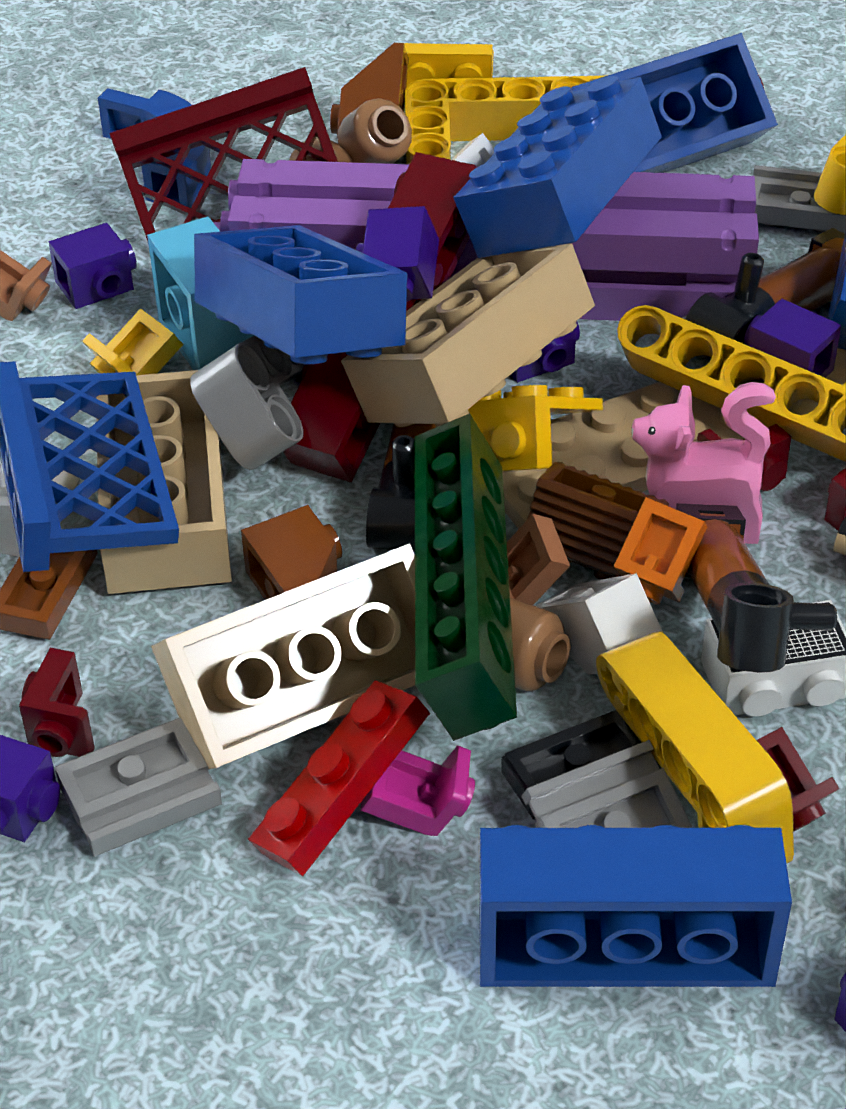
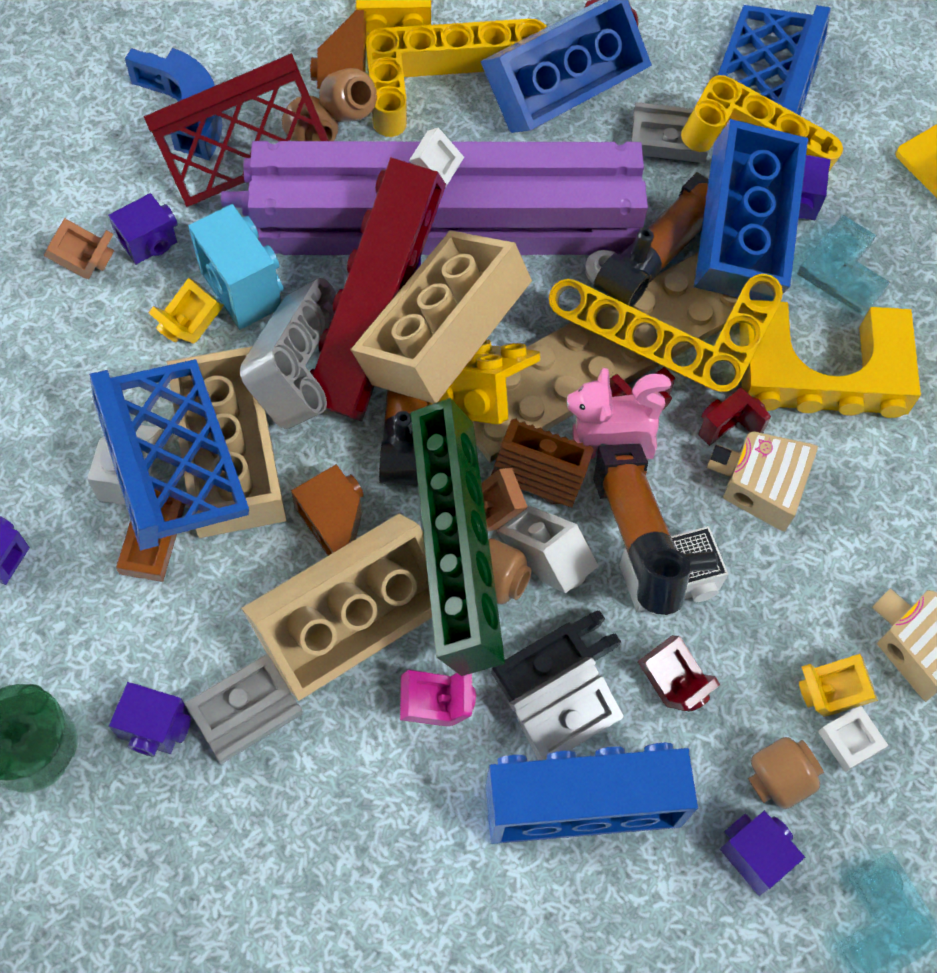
camera: 10 degrees left, 20 degrees up
(51, 707) = (171, 642): dark red bracket -> none
(301, 292) = (315, 298): blue brick -> none
(339, 776) = (383, 700): red plate -> none
(405, 241) = (385, 258): dark purple brick -> none
(558, 167) = (499, 163): blue brick -> none
(660, 549) = (591, 498): orange bracket -> none
(696, 737) = (625, 661): yellow beam -> none
(796, 337) = (673, 297): dark purple brick -> none

